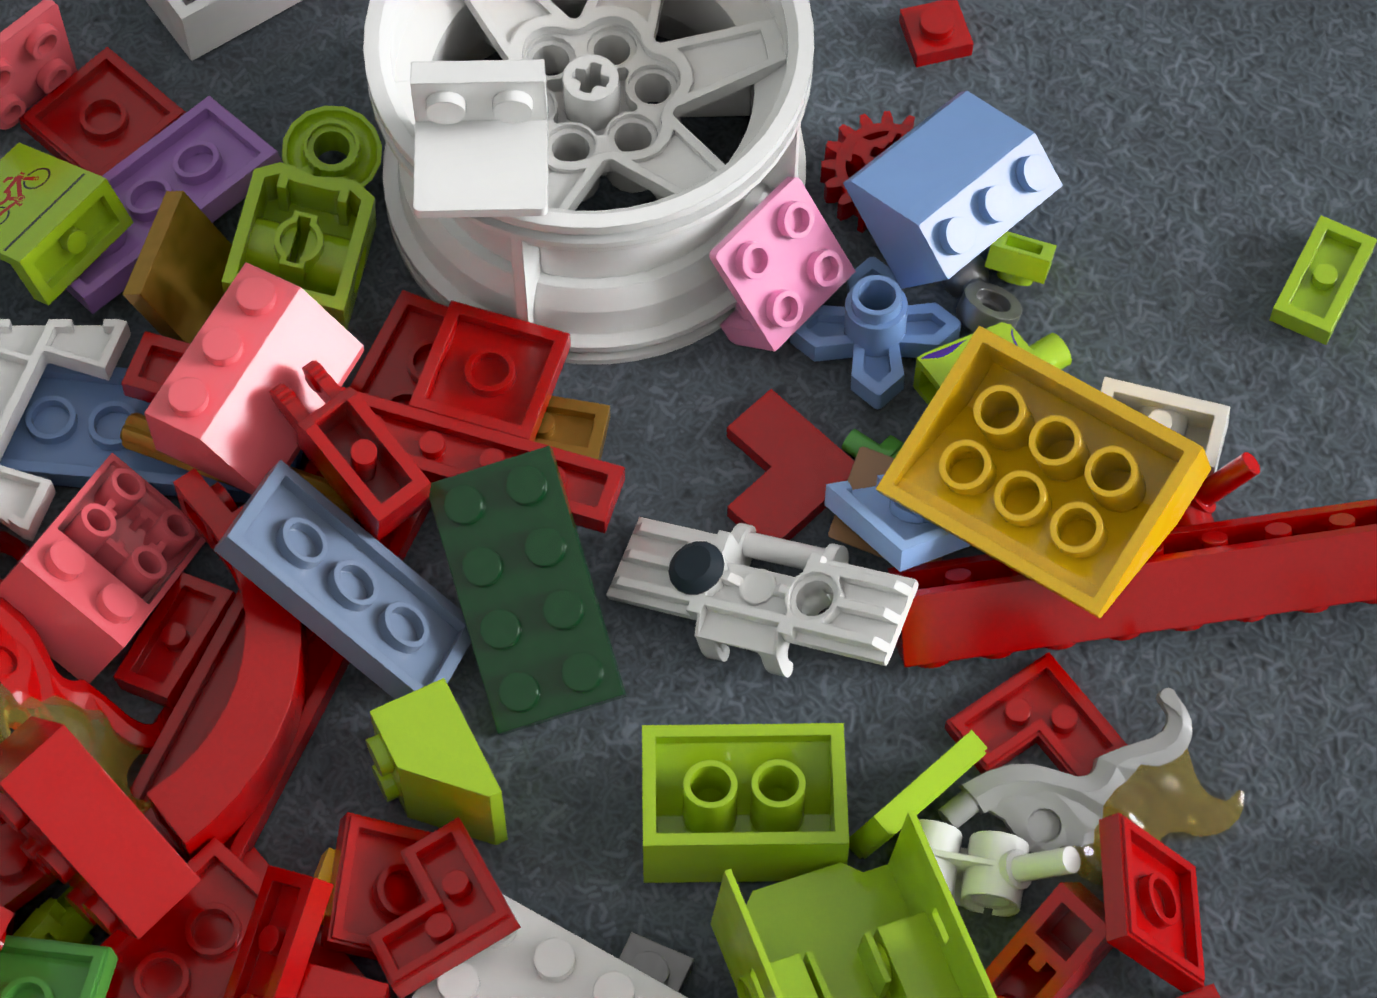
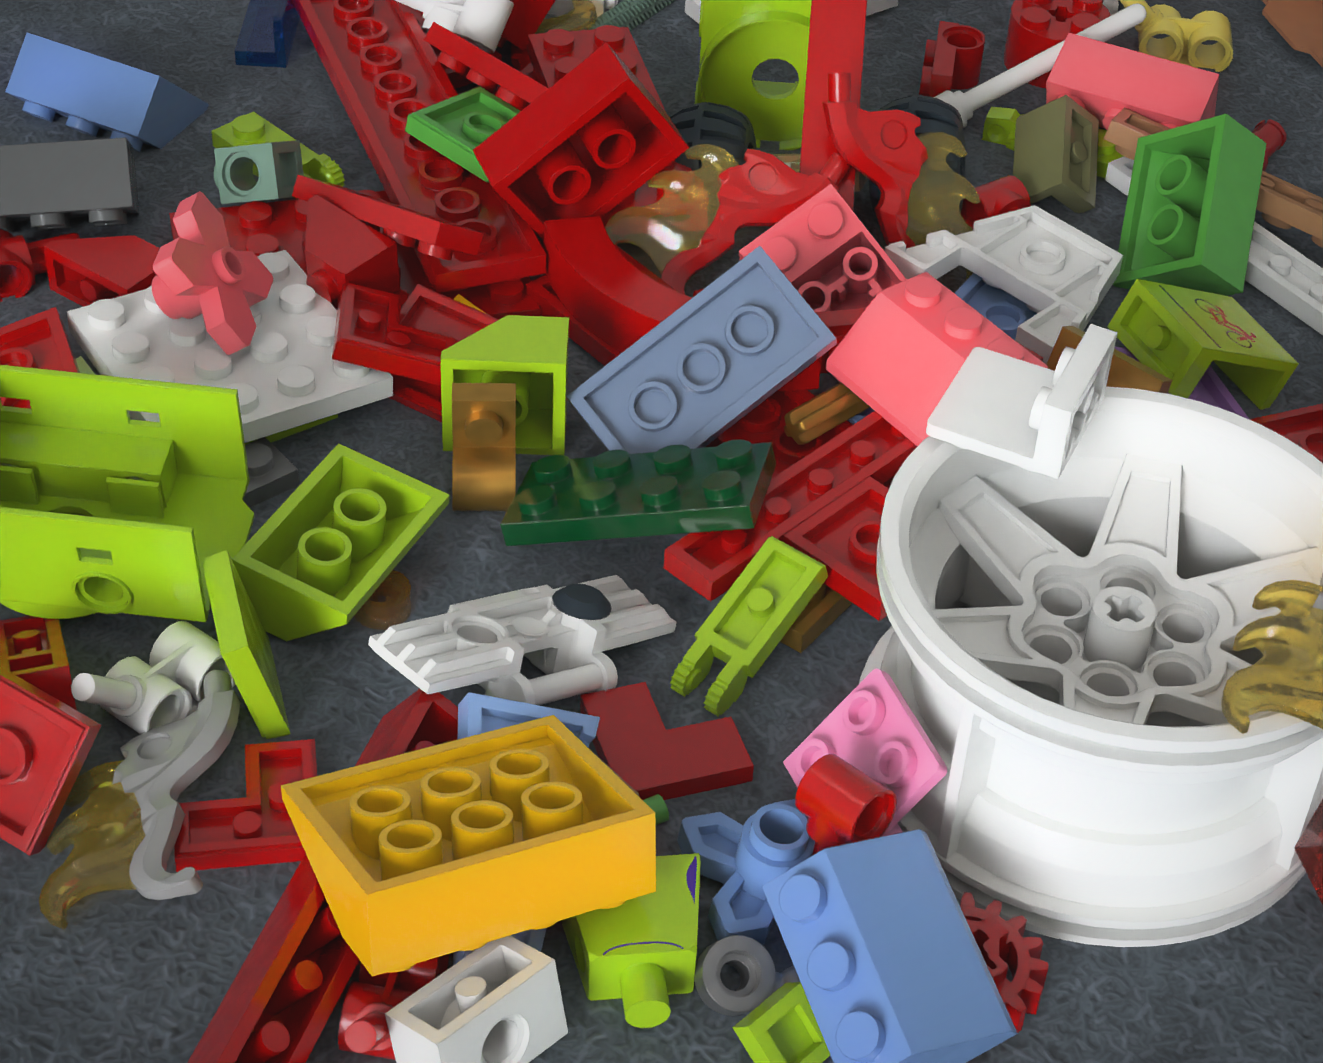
camera: 115 degrees right, 20 degrees down
(355, 453) = (823, 389): red hinge -> none
(541, 754) = (483, 446): none -> pearl gold plate
(631, 437) = (749, 622): none -> lime hinge
(858, 238) = (843, 803): none -> red axle

